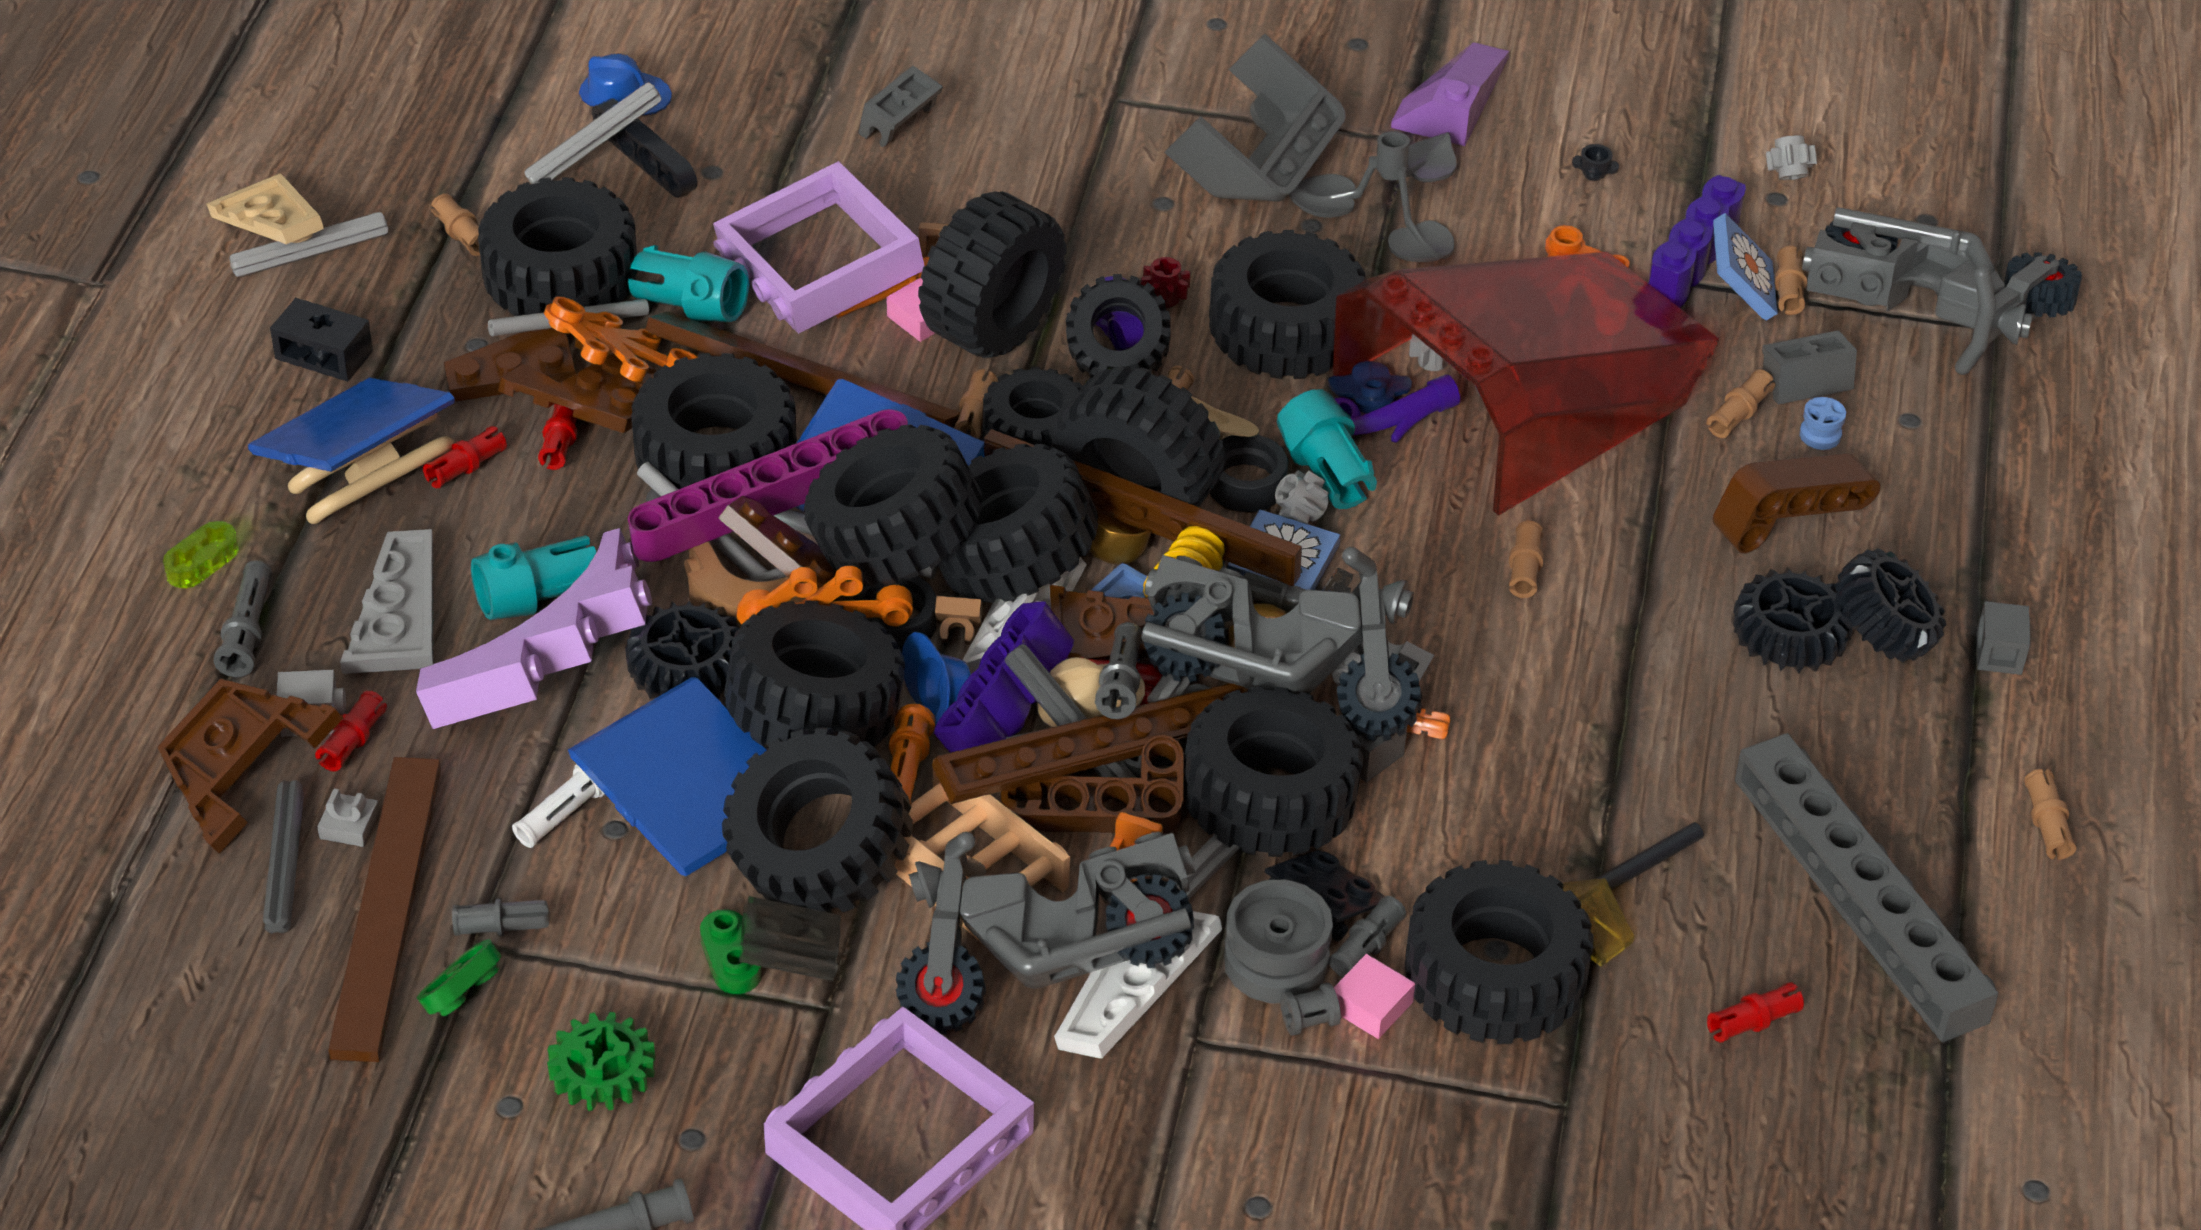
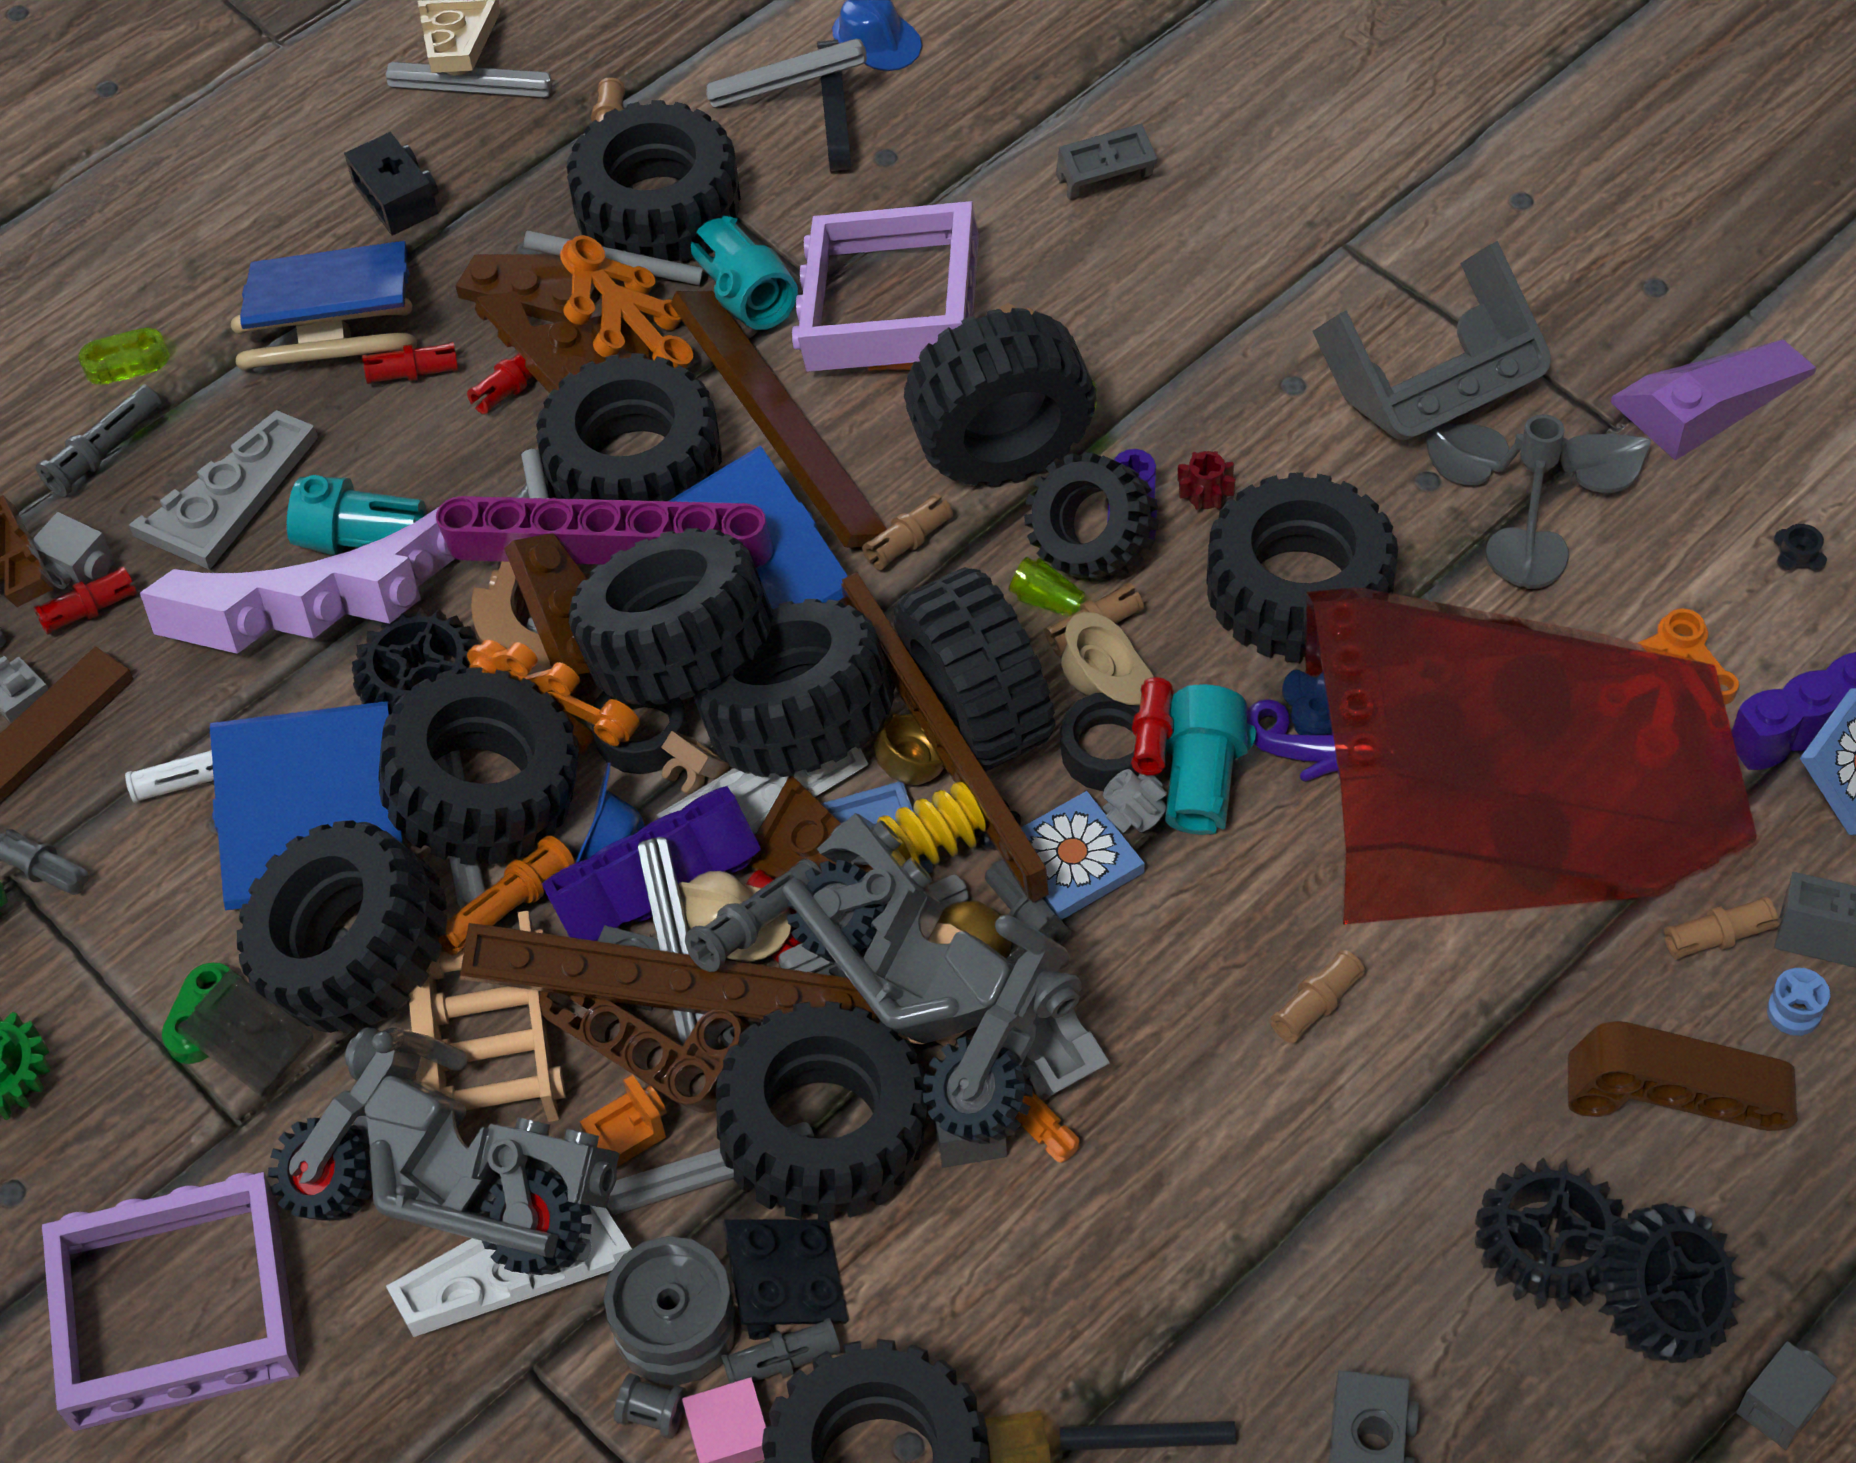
camera: 40 degrees right, 10 degrees up
(1028, 404) = (933, 549): black tyre -> none
(1283, 439) = (1152, 726): none -> red pin

